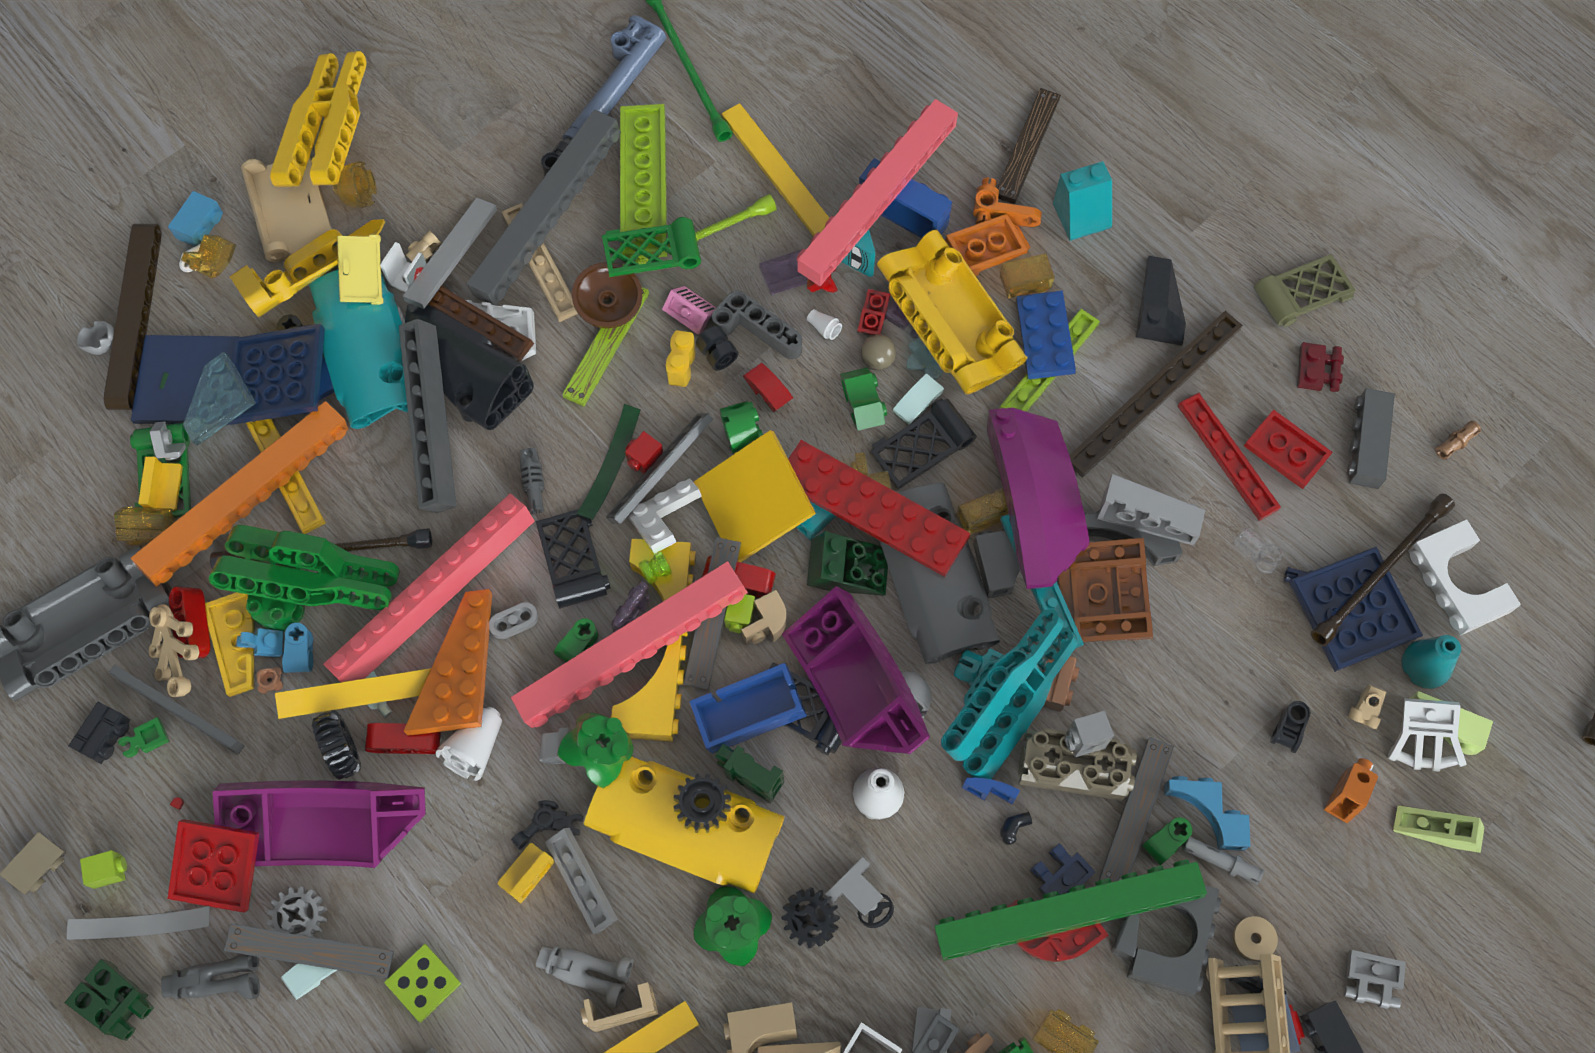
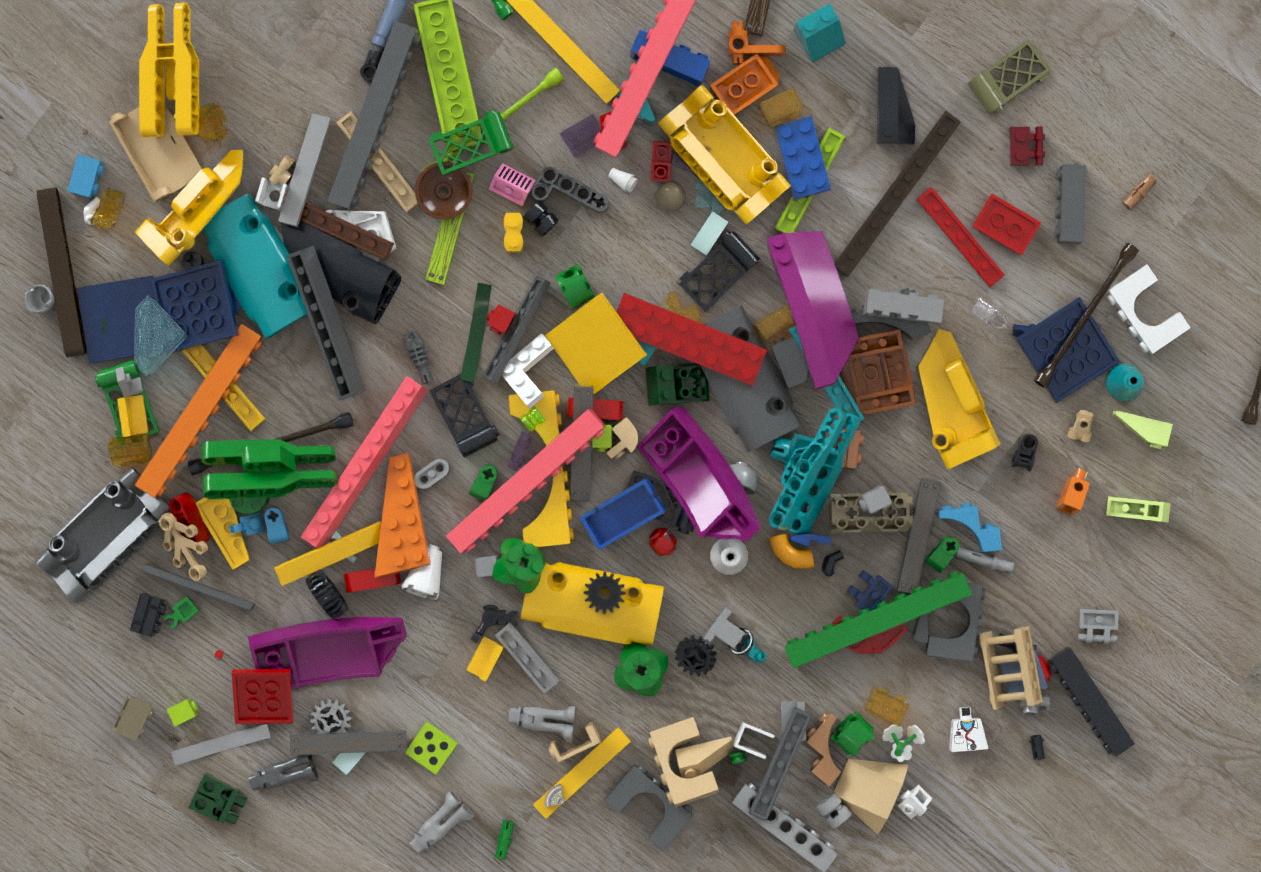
camera: 10 degrees left, 20 degrees up
(263, 676) = (255, 551): nougat plate -> none
(362, 261) = (241, 209): light yellow door -> none
(749, 773) = (632, 560): dark green hips -> none
(766, 383) = (588, 244): red slope -> none
(793, 758) = (662, 541): none -> red head
(861, 393) = (664, 240): green brick -> none
(891, 931) = (755, 654): none -> teal arm
(959, 804) = (789, 555): none -> light orange cylinder
(1203, 651) = (954, 403): none -> yellow panel
(1242, 938) = (1012, 620): tan piece -> none
(1430, 719) = (1126, 433): white plate -> none

